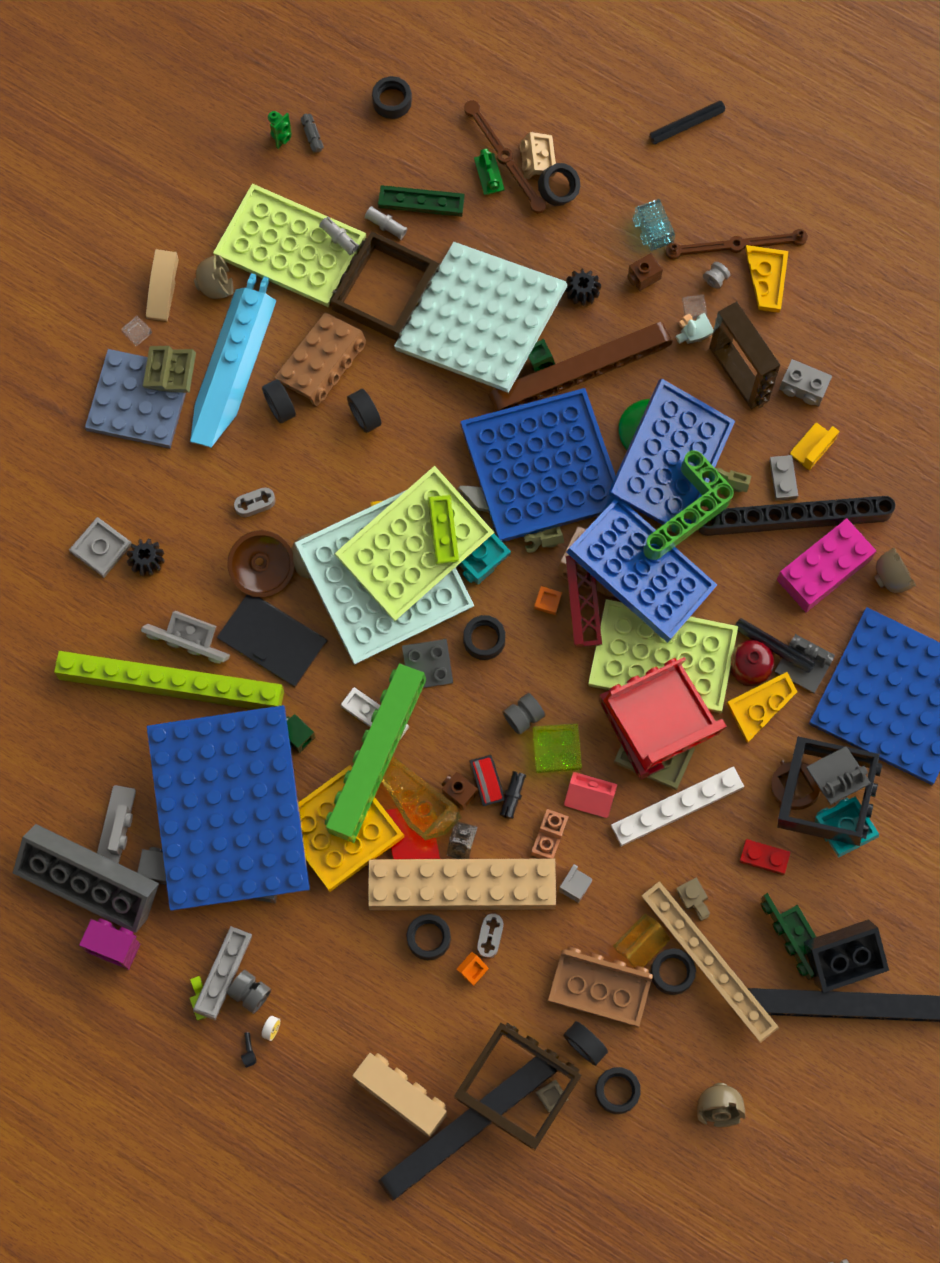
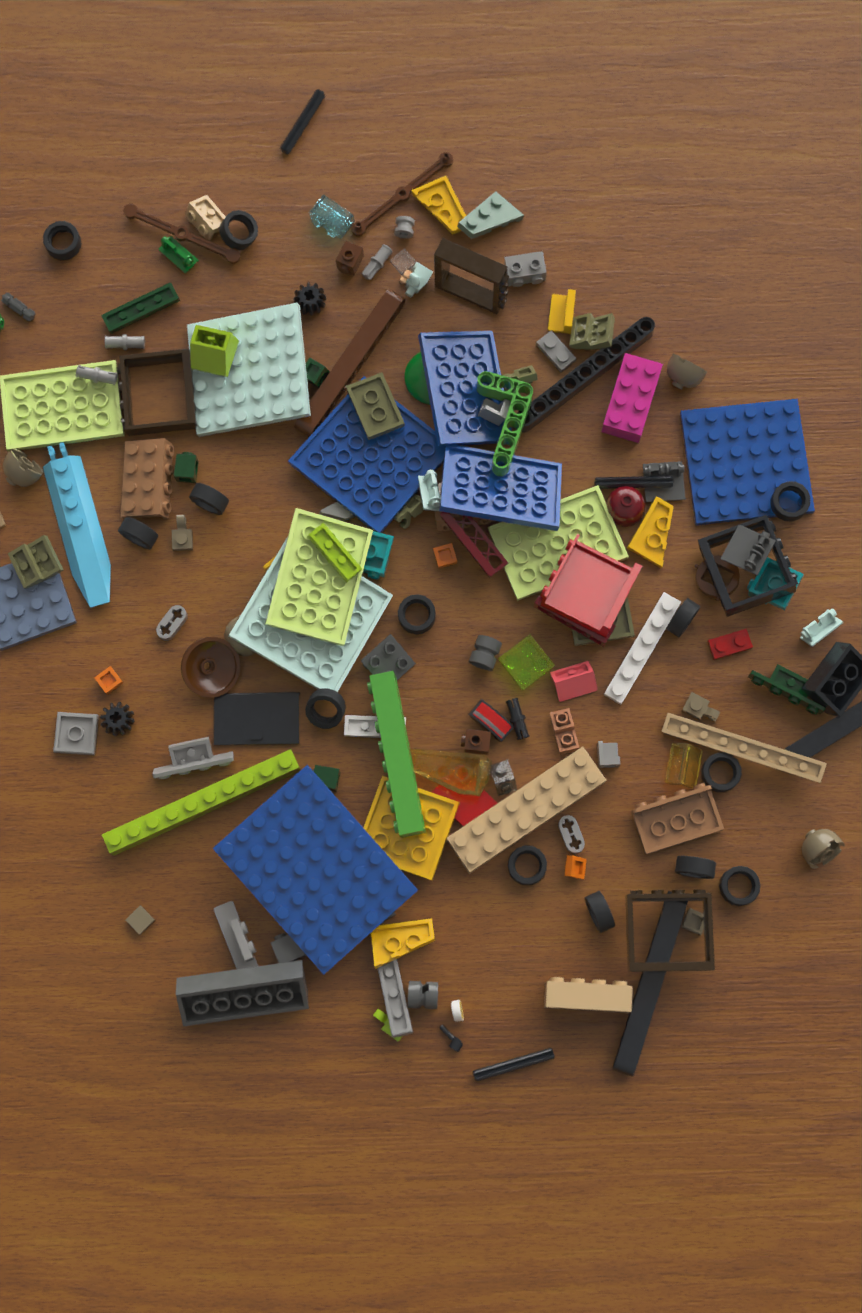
camera: 30 degrees left, 5 degrees up
(41, 752) = (140, 920): none -> dark tan tile
(109, 943) = (295, 1029): magenta brick -> none
(162, 517) = (108, 680): none -> orange plate
(262, 926) = (399, 939): none -> yellow wing
(289, 1114) = (513, 1064): none -> black axle
(317, 431) = (182, 538): none -> dark tan plate
(325, 673) = (321, 721): none -> black tyre
(363, 370) = (186, 467): none -> dark green brick
(458, 277) = (212, 350): none -> lime slope
(465, 1024) = (599, 911): none -> black tyre
(572, 529) = (429, 491): none -> light aqua hinge
(575, 421) = (375, 406): none -> olive plate
(669, 291) = (377, 262): none -> light grey axle
(682, 494) = (494, 412): none -> light grey panel
(734, 801) = (683, 617): none -> black tyre
(804, 312) = (489, 215): none -> wing
(829, 480) = (592, 332): none -> olive slope
(853, 898) = (816, 632): none -> light aqua hinge
(923, 743) = (795, 487): none -> black tyre

